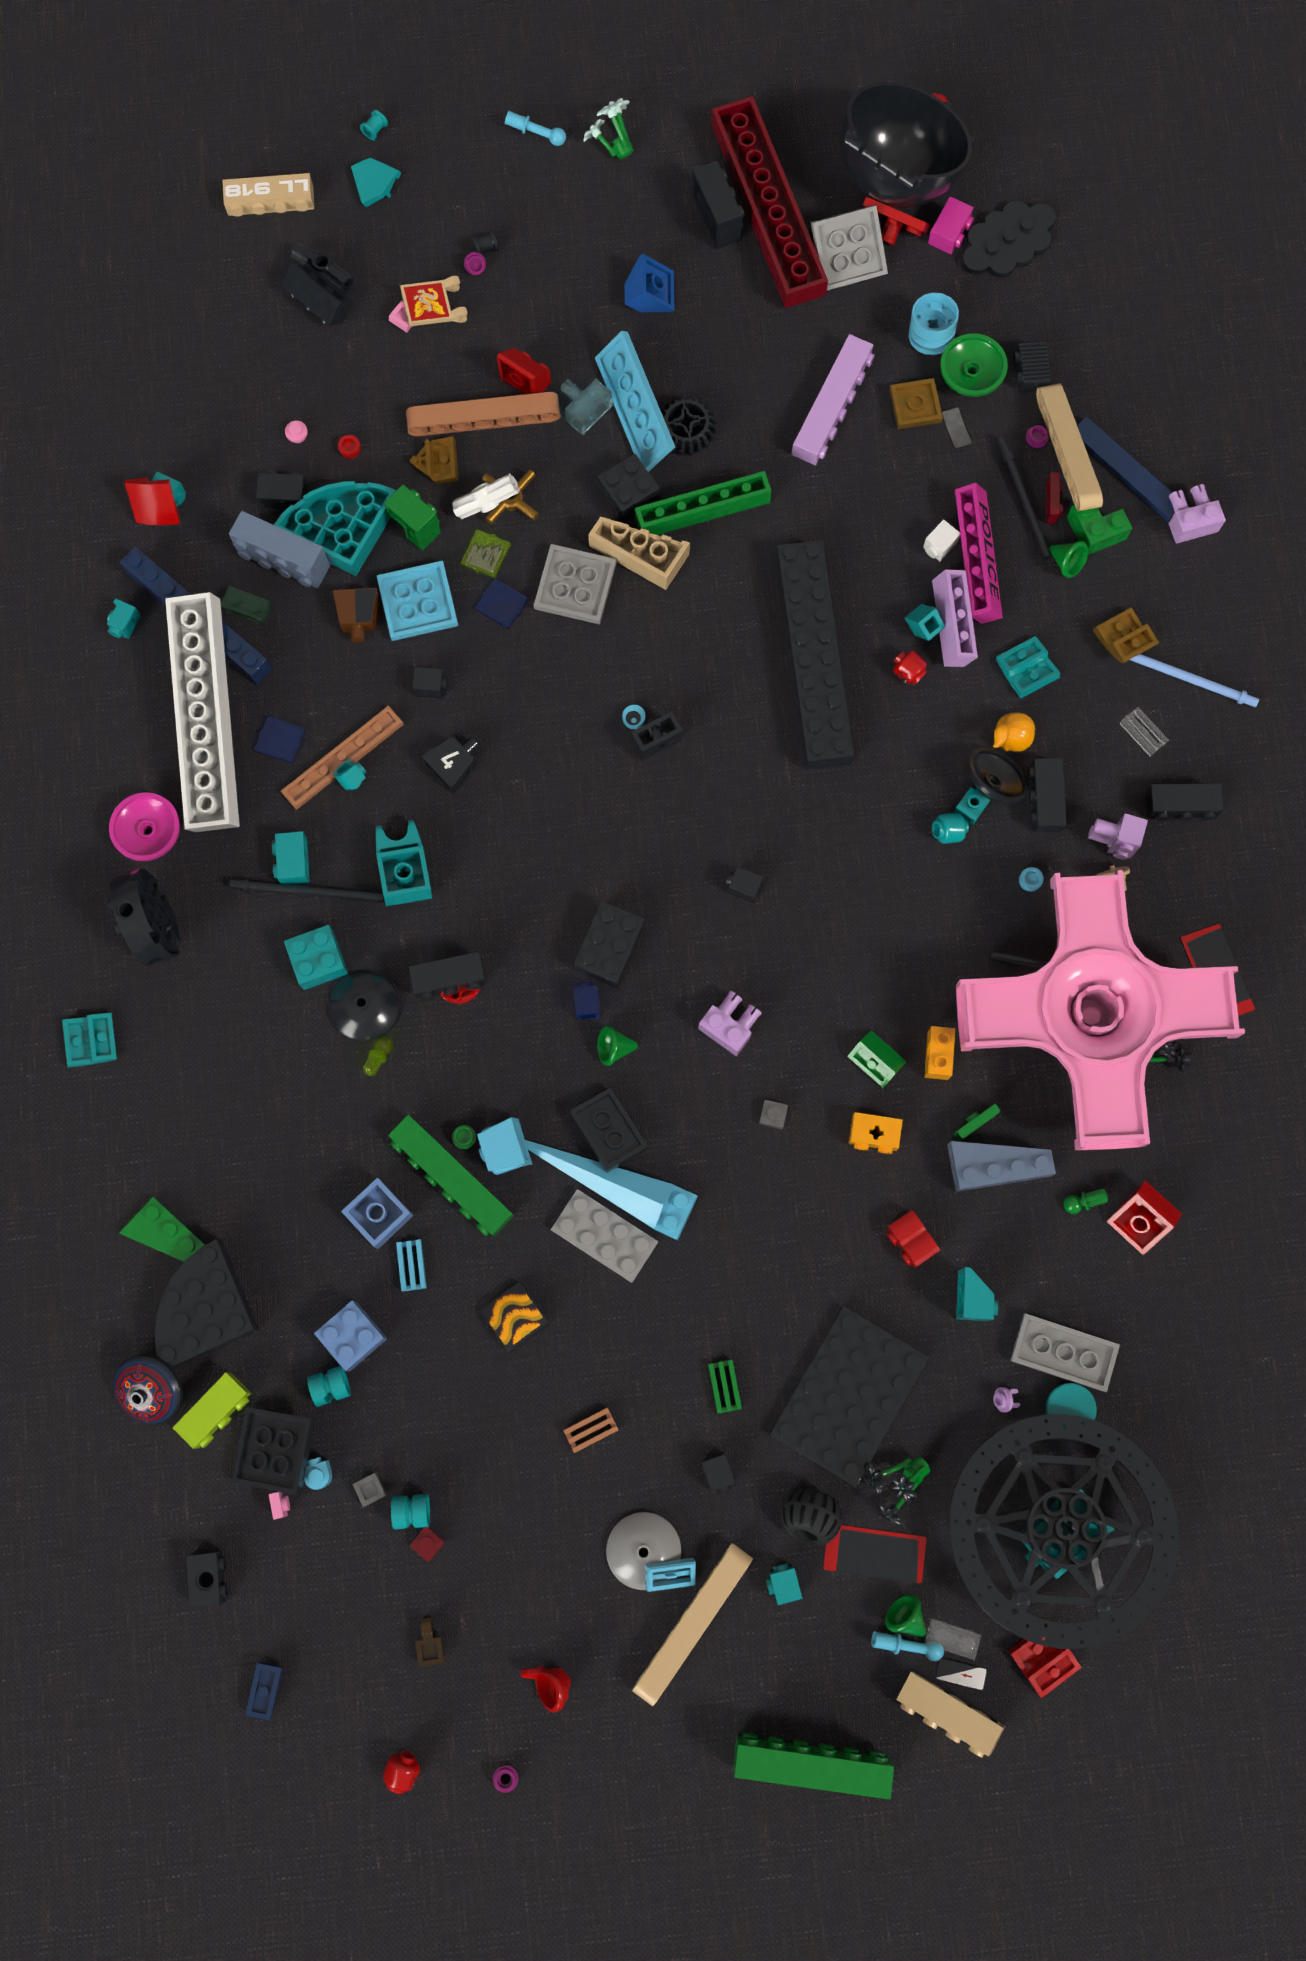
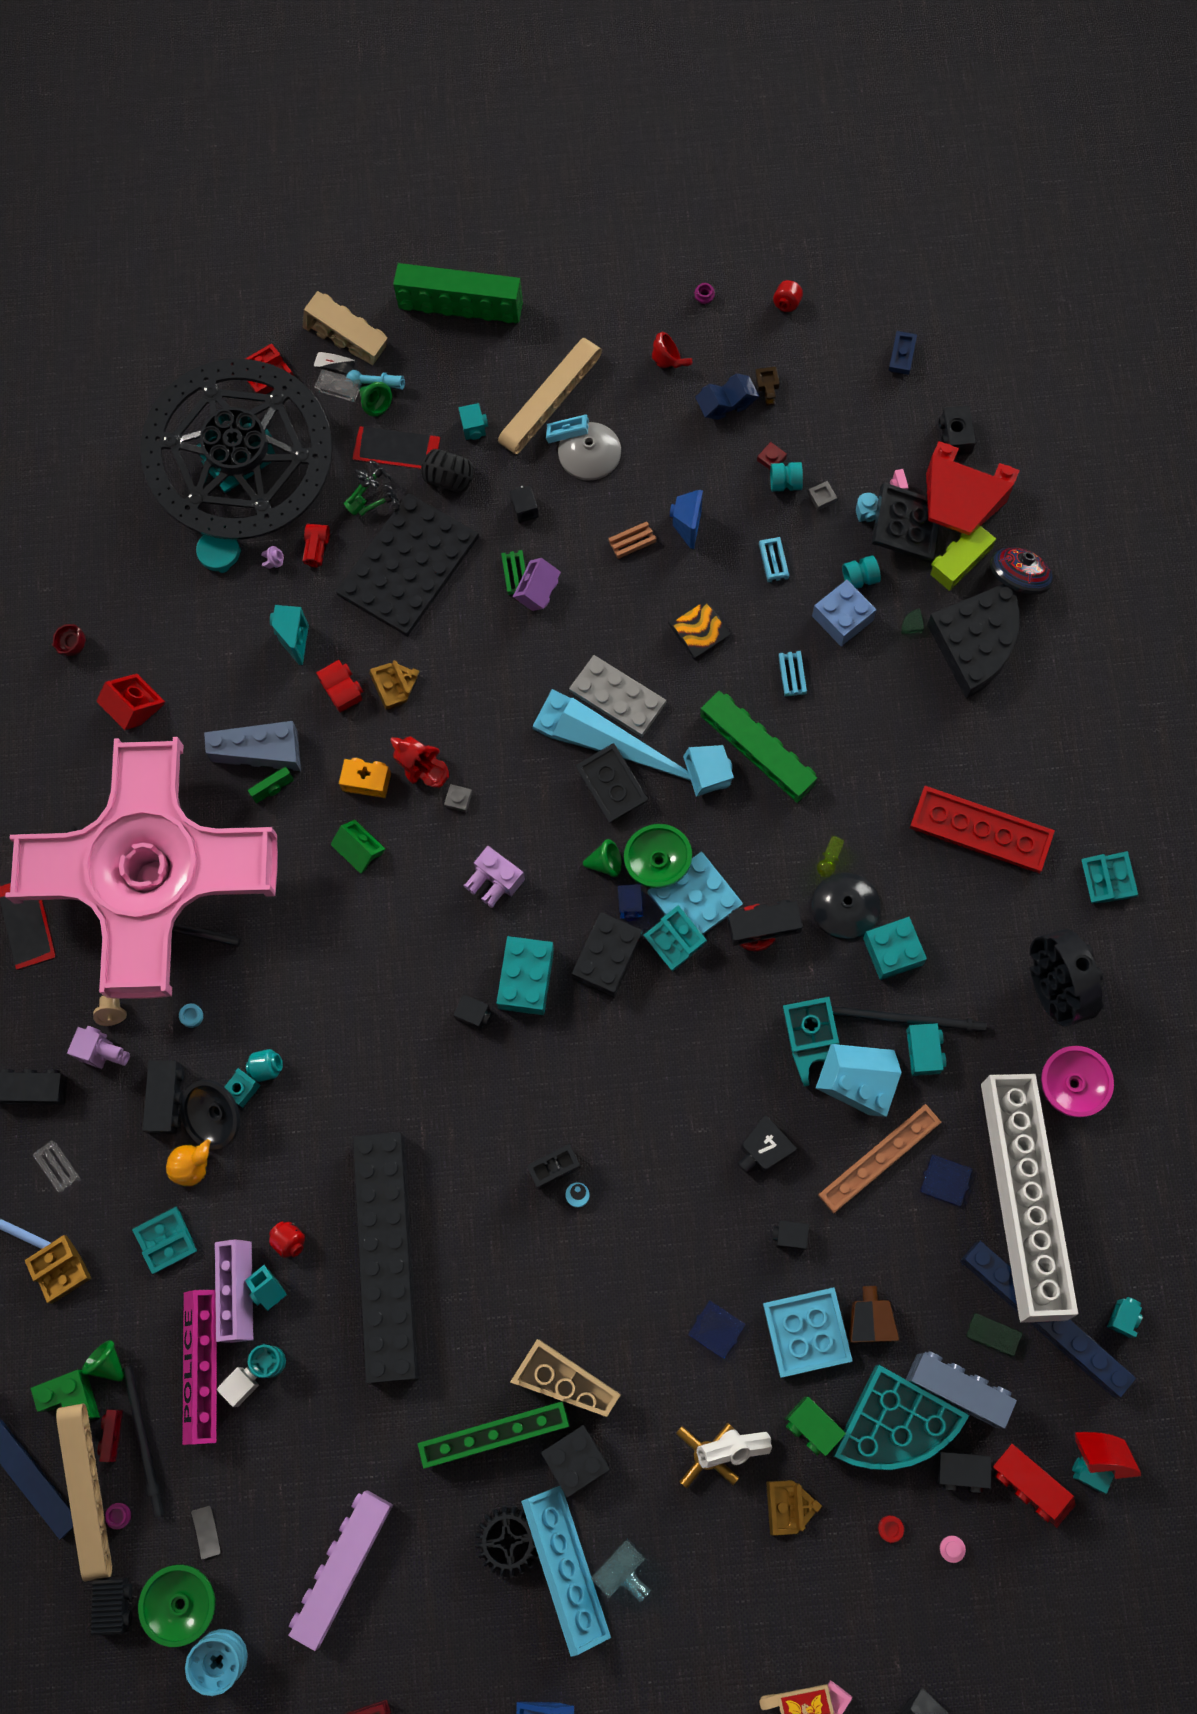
camera: 175 degrees left, 5 degrees down
(162, 1231) = (1020, 705): green wing -> none
(208, 1483) = (962, 495): none -> red wedge
(217, 1088) = (982, 829): none -> red plate
(220, 477) = (1034, 1486): none -> red wedge
(274, 1329) = (913, 622): none -> clear green tile
(349, 774) = (870, 1135): teal plate -> none
(355, 824) = (861, 1077): none -> medium azure wedge
(377, 1213) = (824, 712): medium blue brick -> none
(424, 1386) = (785, 574): none -> medium azure tile
(464, 1137) = (746, 782): green plate -> none
(471, 1624) = (735, 394): none -> dark blue brick
(483, 414) = (739, 1563): nougat beam -> none
(485, 553) = (734, 1390): piece -> none
(520, 1010) = (700, 894): none -> medium azure plate
(522, 372) = (691, 1615): red slope -> none
(526, 1455) = (687, 515): none -> blue slope
(540, 963) = (675, 938): none -> teal slope
(568, 1032) = (655, 844): none -> green dish
(575, 584) = (636, 1347): light grey plate -> none
(692, 922) = (525, 975): none -> teal brick
(698, 1365) = (537, 584): none -> medium lavender brick
(818, 1150) = (419, 761): none -> red head
(853, 1246) = (393, 683): none -> pearl gold slope
(916, 403) = (248, 1562): pearl gold plate -> none
(917, 560) = (266, 1361): none -> teal wheel
(939, 1053) = (298, 846): light orange brick -> none
(957, 1424) = (316, 538): none -> red piece
(1065, 1352) = (217, 593): light grey plate -> none
(1074, 1204) = (191, 716): green axle -> none
(1225, 1289) = (69, 640): none -> dark red hair

